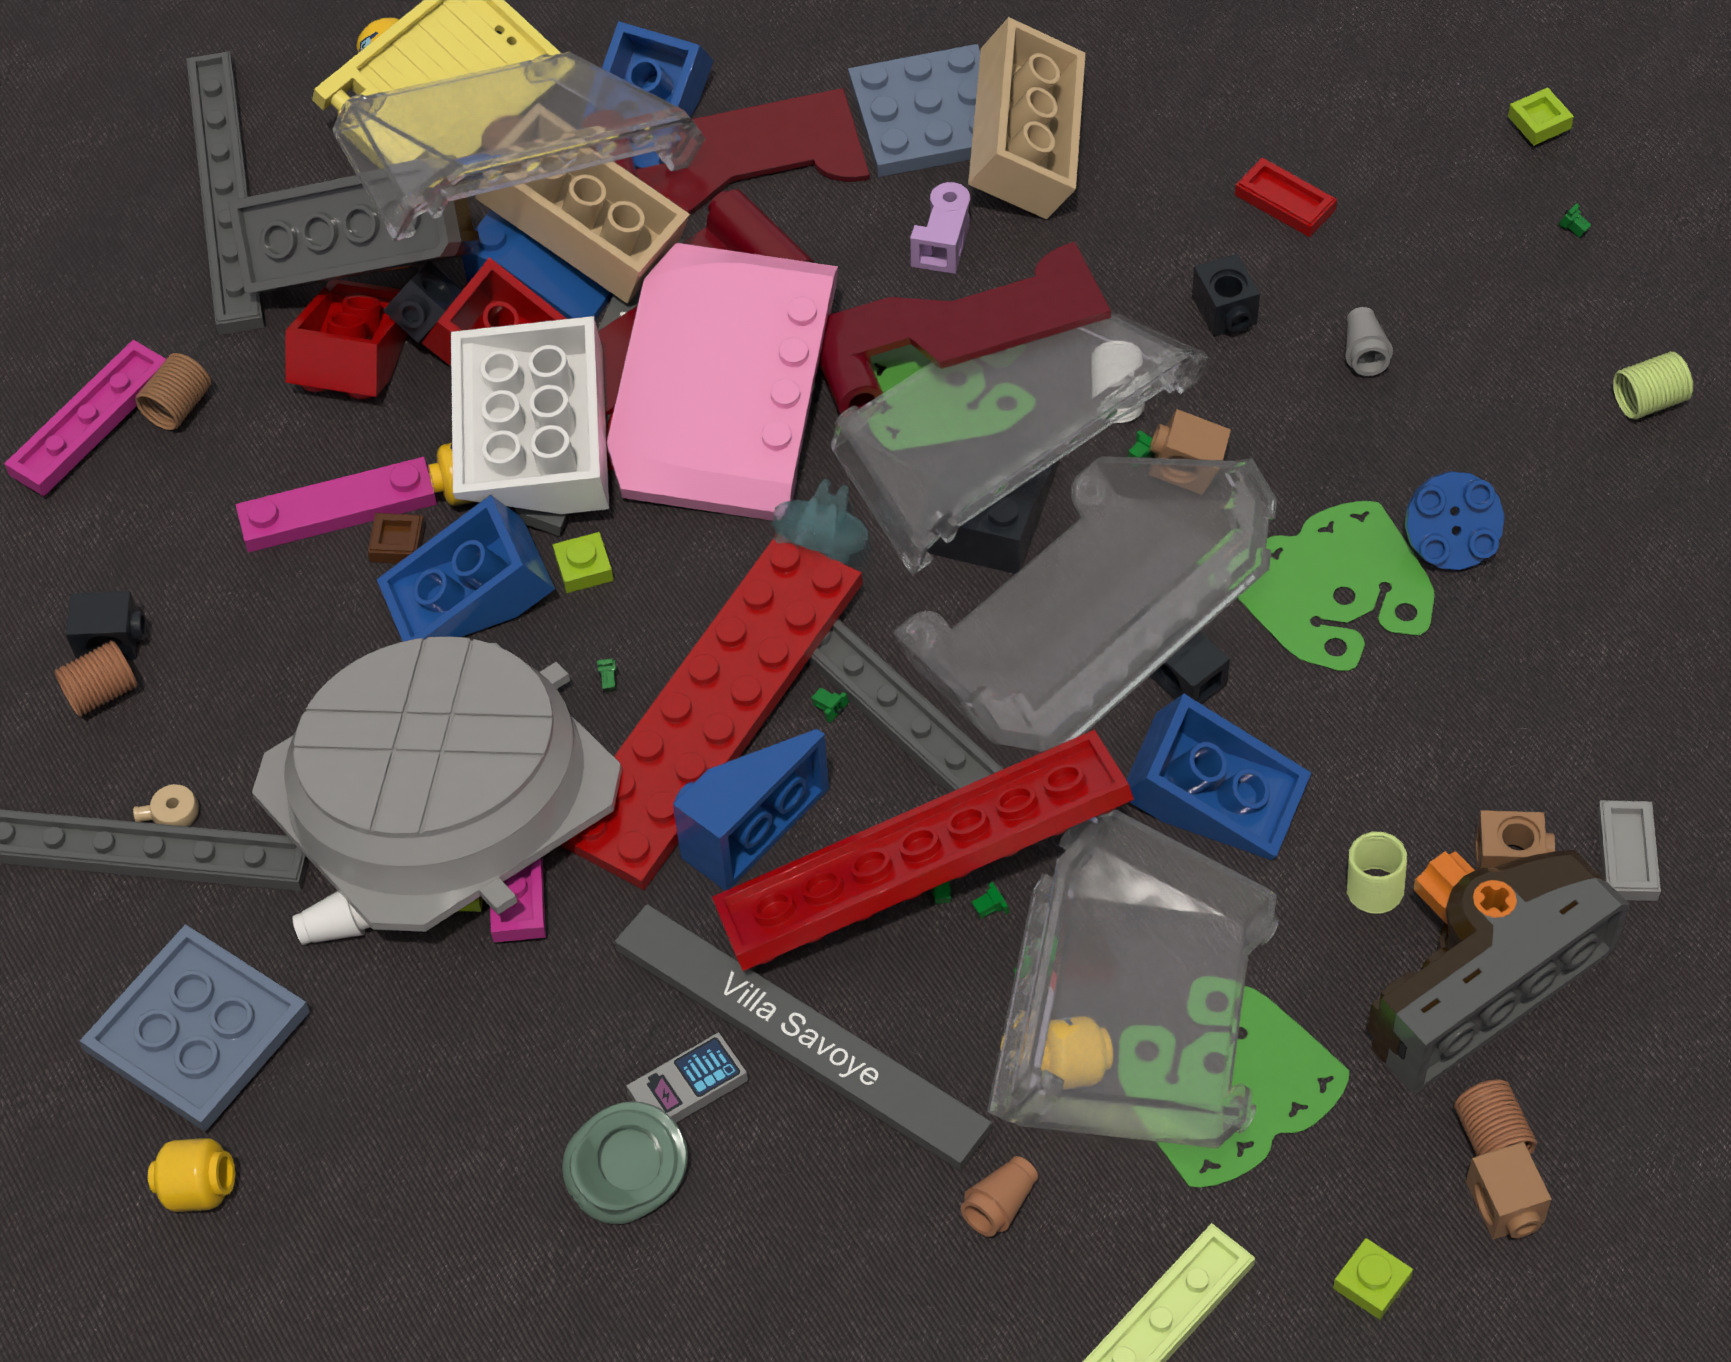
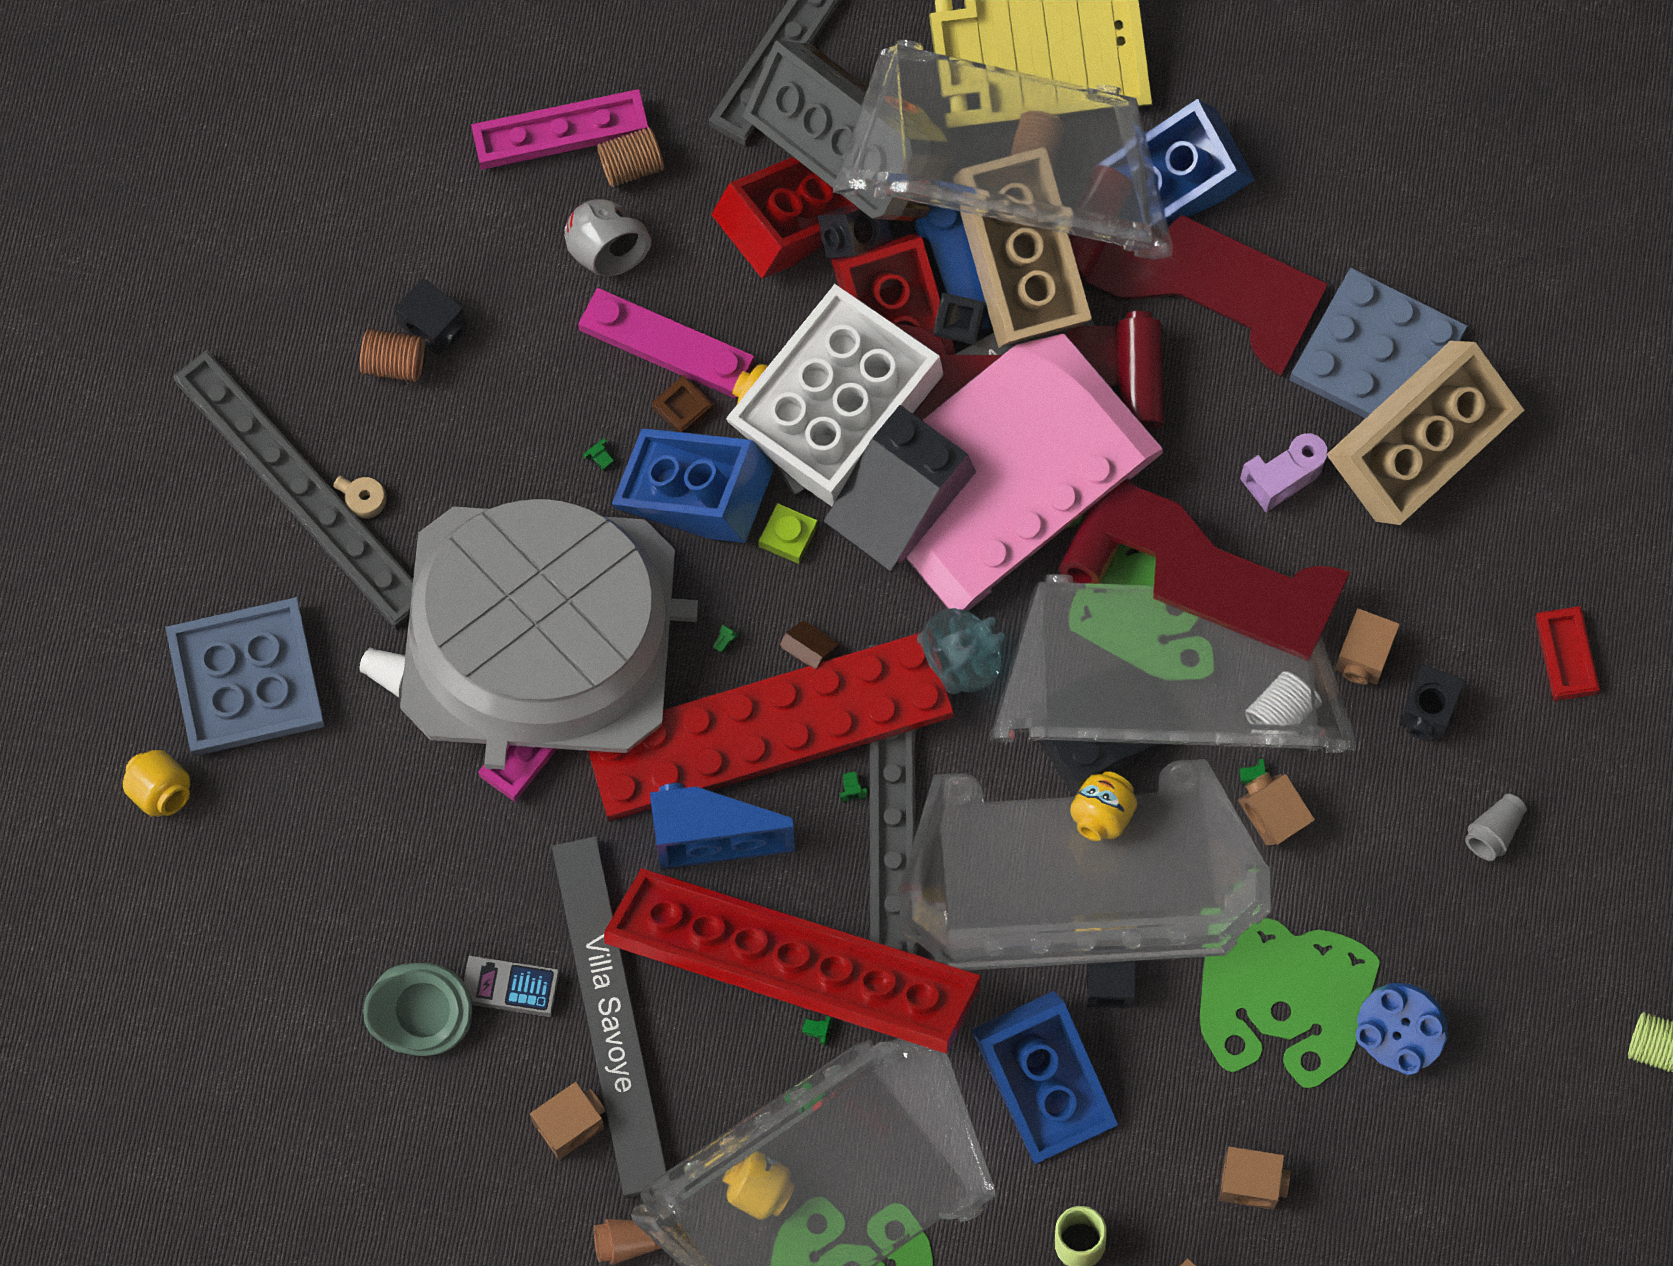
camera: 40 degrees right, 15 degrees up
(192, 457) = (593, 230): none -> light grey helmet
(358, 625) = (599, 455): none -> green piece
(575, 299) = (959, 318): none -> black slope
(652, 440) = (899, 489): none -> black slope
(686, 622) = (809, 644): none -> reddish brown tile
(850, 1142) = (569, 1119): none -> medium nougat brick
(1057, 544) = (1103, 806): none -> yellow head
(1136, 291) = (1366, 648): none -> medium nougat brick
(1459, 721) = (1253, 1178): none -> medium nougat brick

